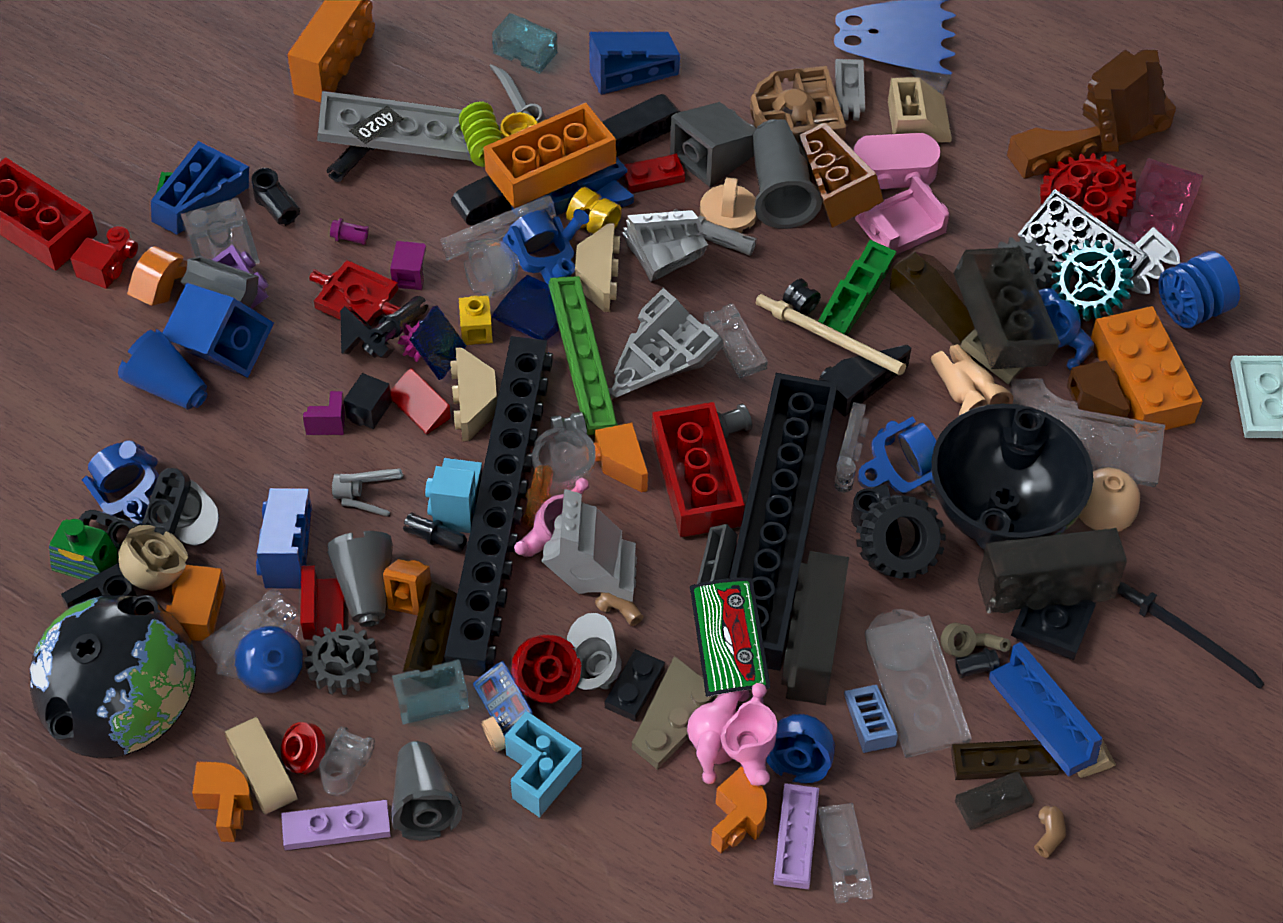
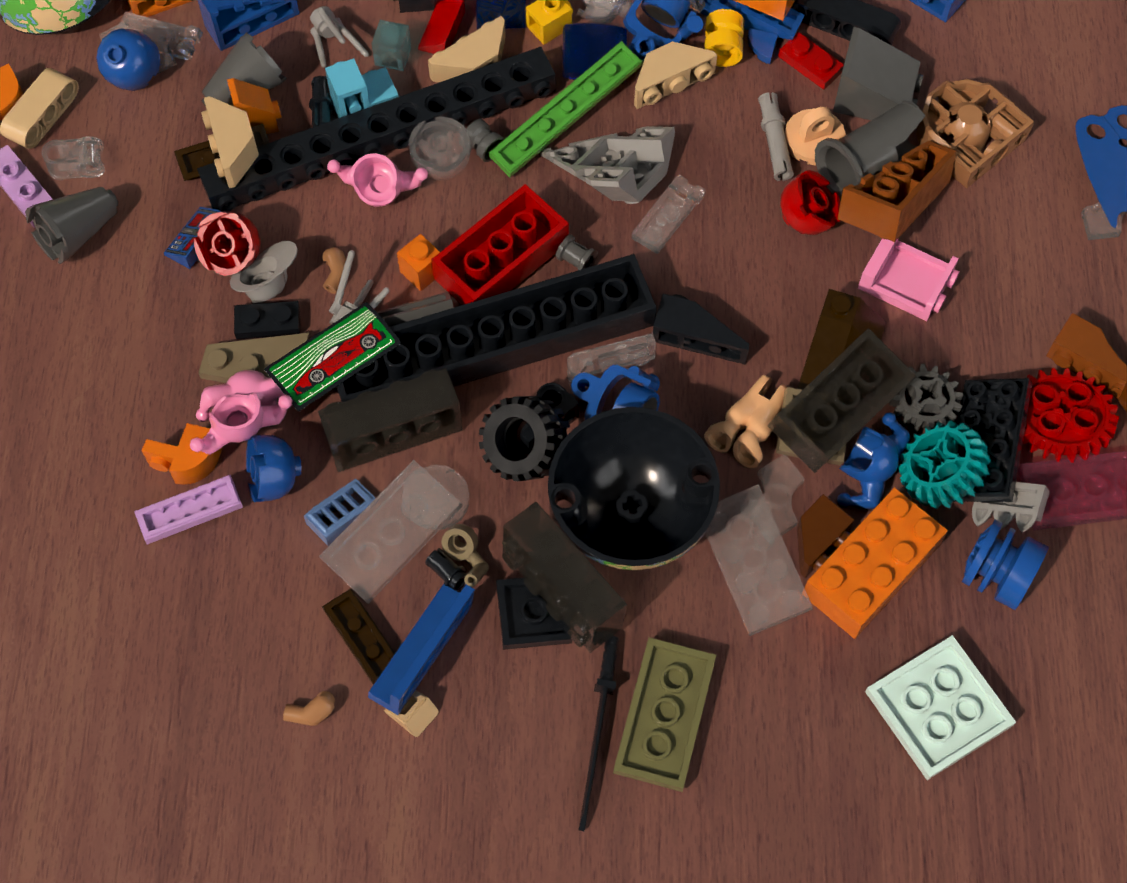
camera: 60 degrees right, 10 degrees up
(303, 747) = (67, 124): red plate -> none
(320, 604) = (198, 64): red panel -> none
(332, 668) = (162, 107): dark grey gear -> none
(416, 446) = (391, 45): none -> clear light blue brick
(431, 692) = (162, 178): clear light blue brick -> none
(439, 606) = (230, 138): none -> tan slope
(494, 734) = (155, 244): light nougat tile -> none
(538, 492) = (395, 146): clear orange axle -> none
(546, 761) = (140, 294): medium azure brick -> none
(590, 551) = (359, 211): light grey slope -> none
(621, 456) = (484, 190): orange slope -> none
(664, 534) = (416, 263): none -> orange brick
(665, 240) = (715, 100): light grey slope -> none
(679, 613) = (341, 310): none -> light grey plant
(785, 311) = (725, 235): tan bar -> none
(801, 242) = (809, 204): none -> red cylinder
(801, 296) = (751, 239): black wheel -> none
(844, 852) = (193, 554): clear plate -> none
(850, 87) = (1033, 157): light grey hinge -> none
(858, 287) = (792, 280): green slope -> none
(900, 158) = (972, 234): bright pink brick -> none
(918, 109) = (1044, 224): tan slope -> none
(994, 800) = (316, 650): clear smoke plate -> none
(1112, 500) = (701, 599): light nougat cylinder -> none
(1196, 574) = (664, 714): none -> olive plate

